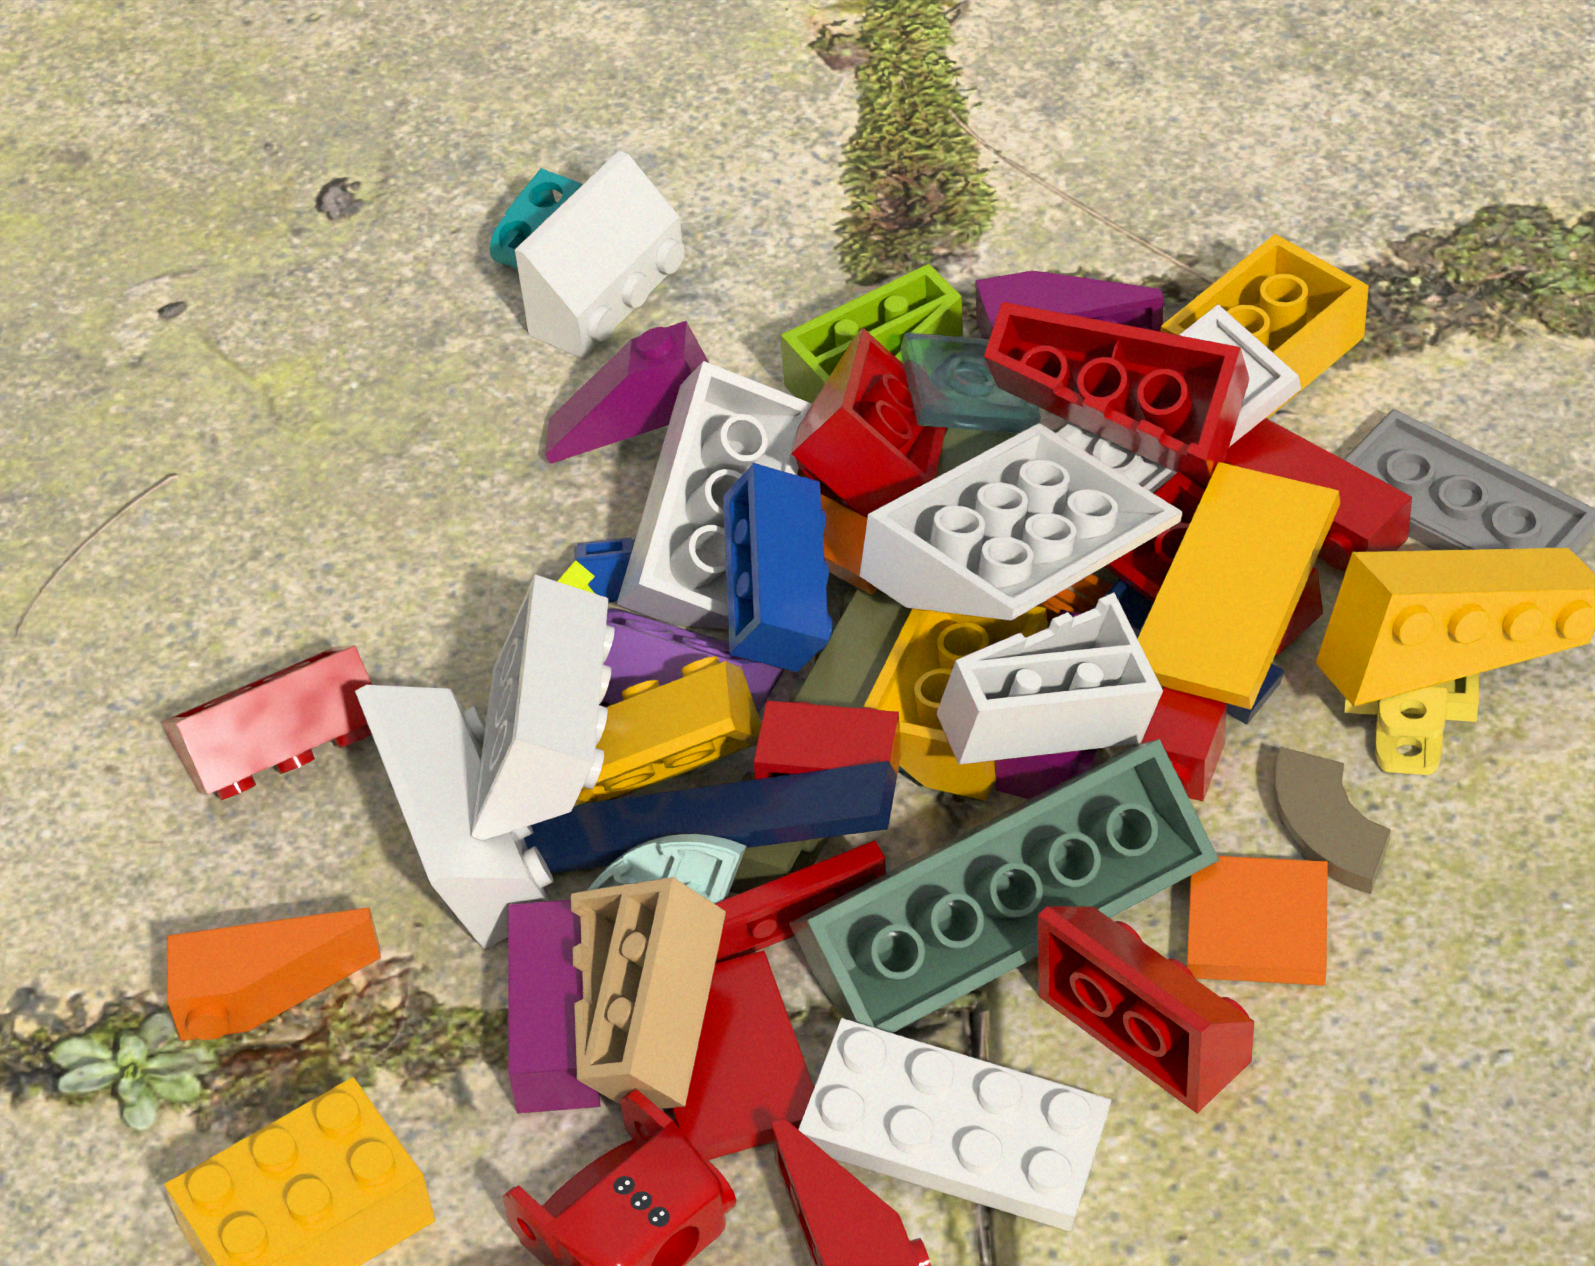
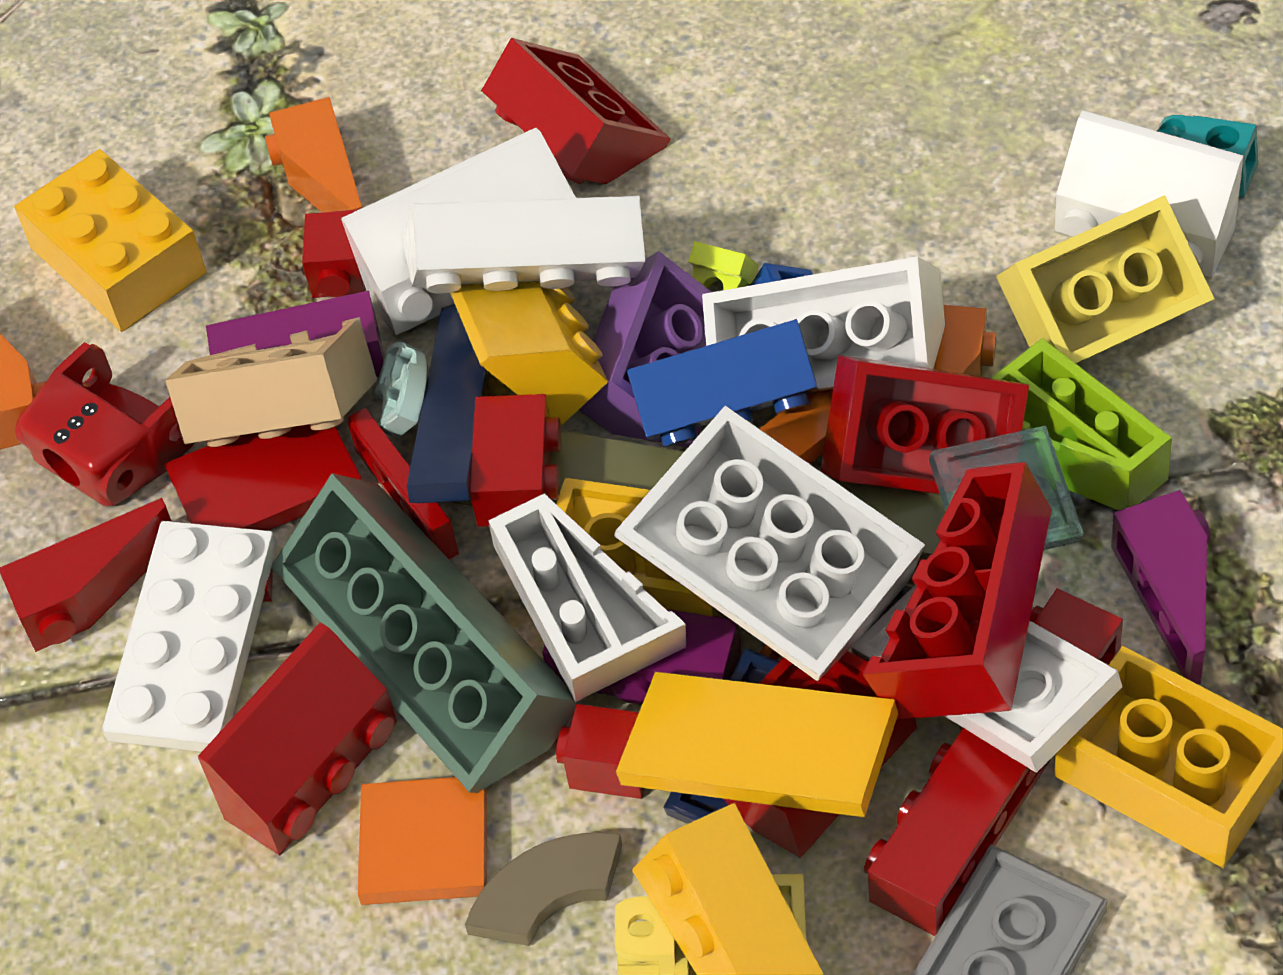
camera: 85 degrees right, 5 degrees up
(412, 961) = (329, 257): none -> red brick
(627, 394) = (968, 260): magenta slope -> none
(718, 282) = (1107, 283): none -> light yellow brick

